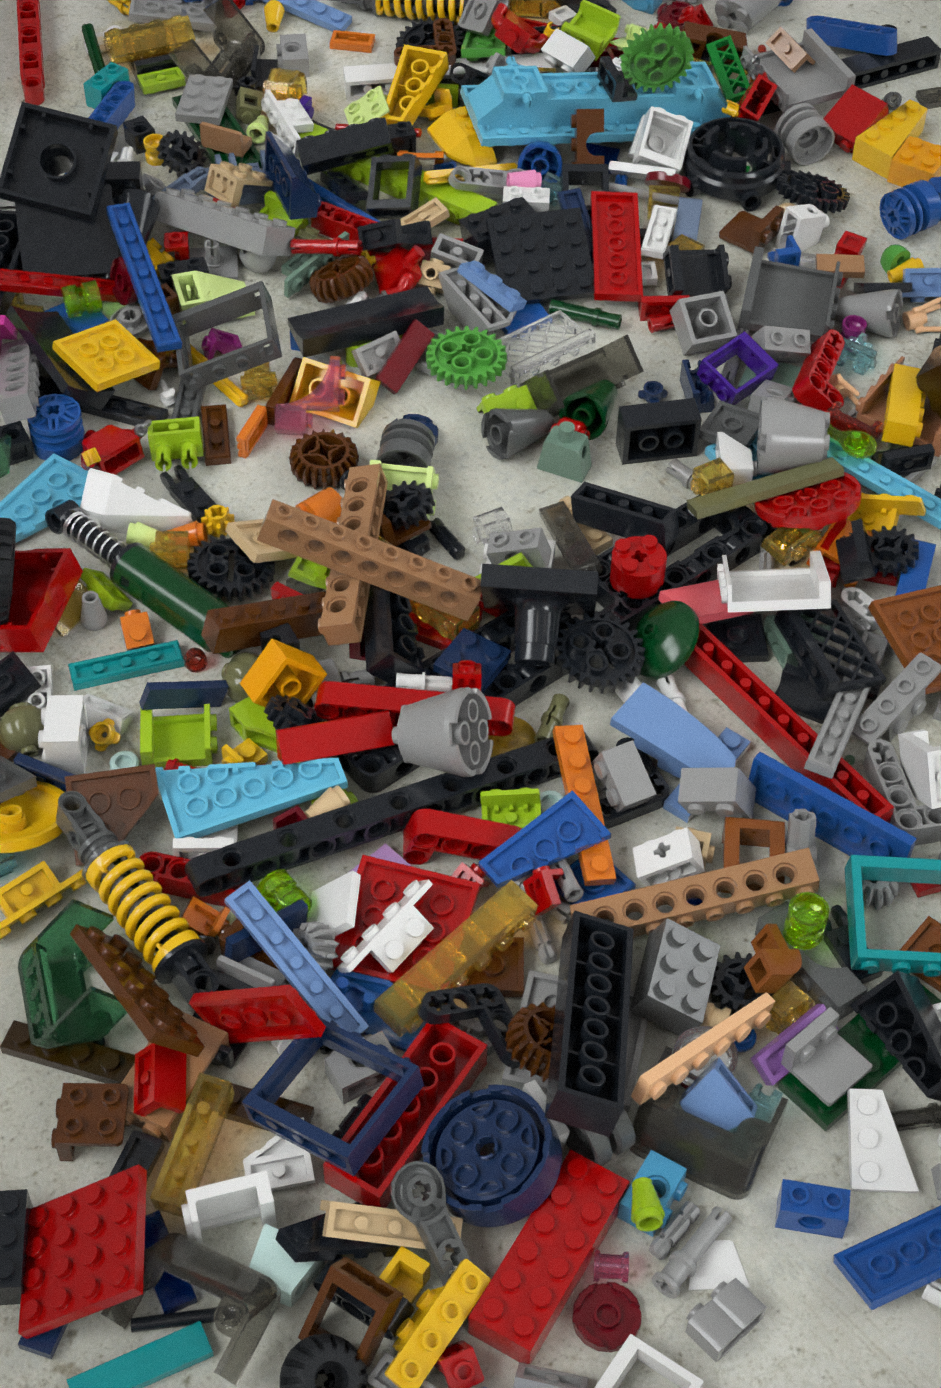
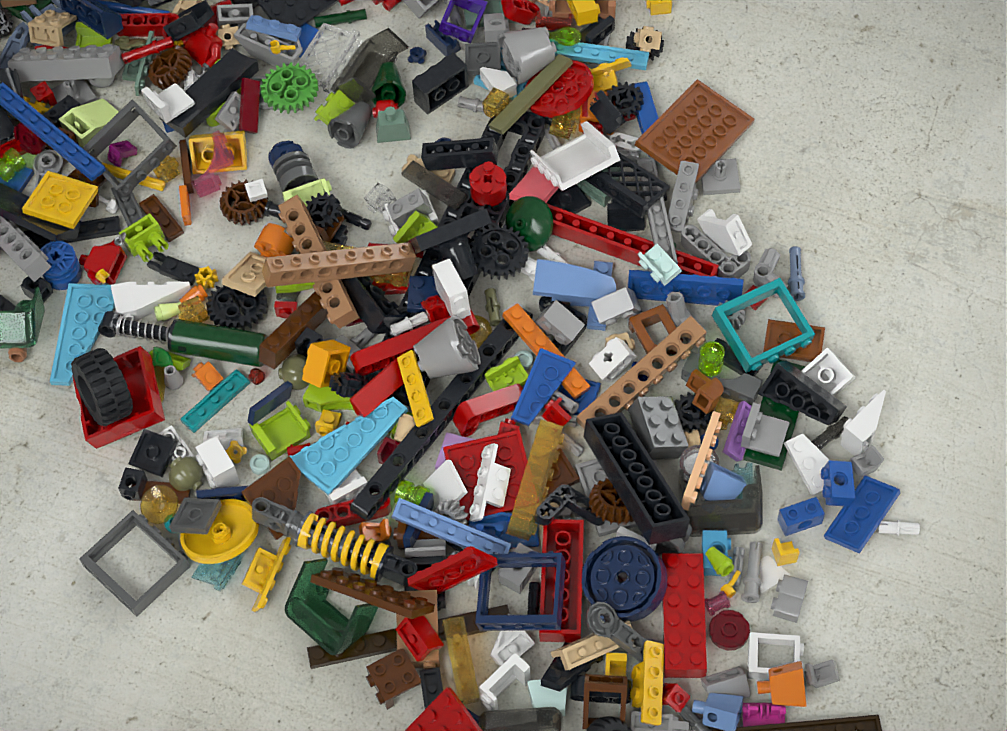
camera: 25 degrees left, 10 degrees up
(93, 579) = (161, 357): none -> green tile
(306, 309) = (169, 102): none -> white bracket
(343, 447) = (256, 190): none -> white plate
(372, 762) = (415, 388): none -> yellow bracket
(477, 306) = (276, 47): none -> yellow hand
(498, 659) = (451, 289): none -> white brick
(640, 1254) = (728, 588): none -> yellow hand
(757, 1248) = (784, 552): none -> yellow panel
(805, 762) = (660, 265): none -> light aqua bracket
(909, 1177) = (842, 474): none -> blue brick

